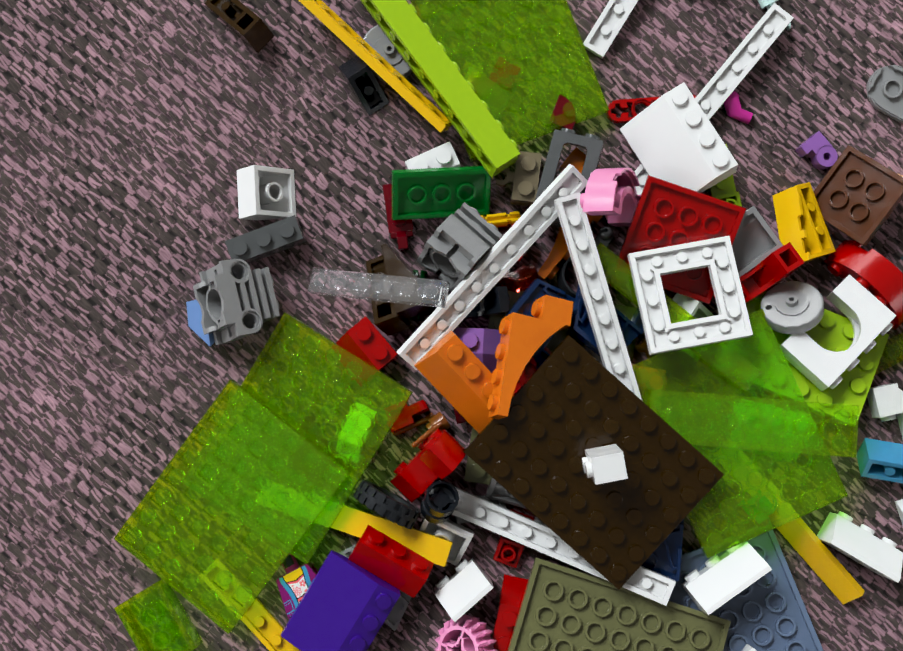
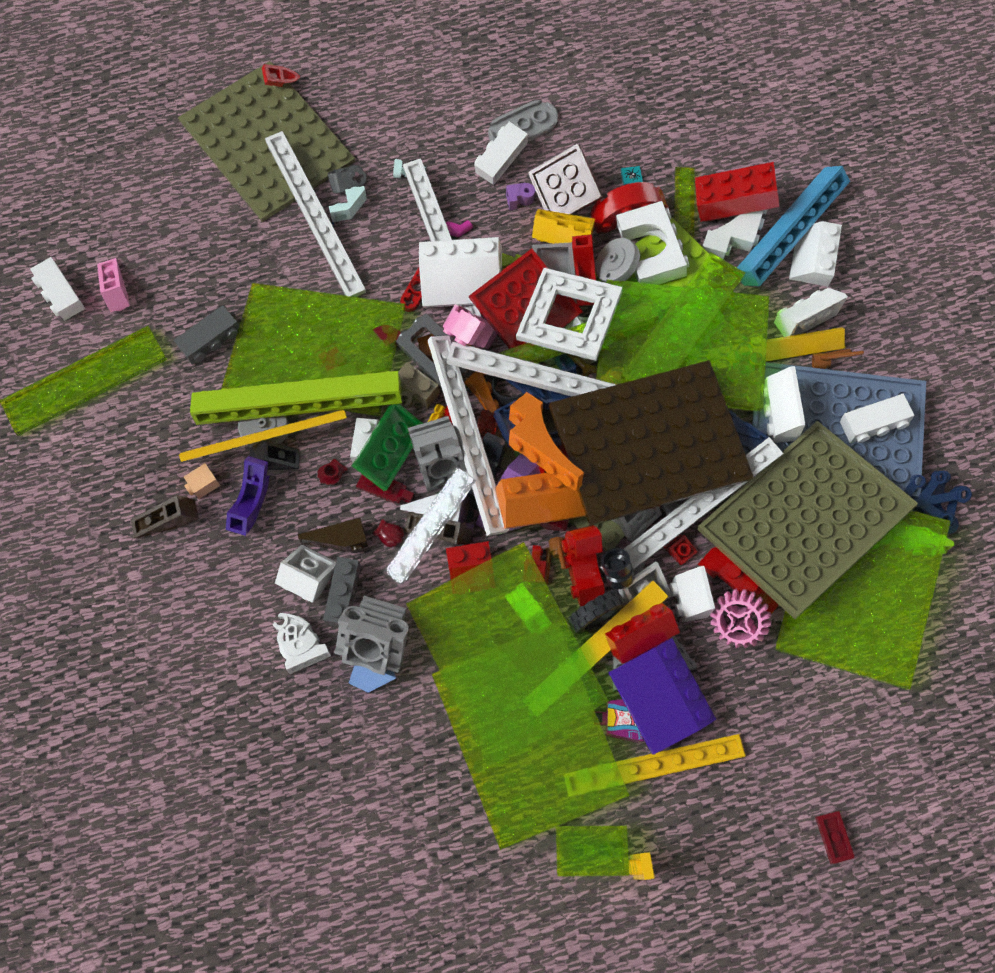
camera: 60 degrees left, 15 degrees down
(194, 233) = (301, 643): none -> white piece
(296, 29) = (201, 481): none -> light nougat brick
(304, 90) = (251, 497): none -> dark purple arch
(322, 206) = (342, 537): none -> dark brown slope
(354, 249) = (389, 533): none -> dark red animal
(382, 151) = (331, 472): none -> dark red animal
(604, 464) = (657, 424): white brick -> none
(812, 588) = (823, 360): none -> dark orange plant
(857, 99) = (501, 152): none -> white brick

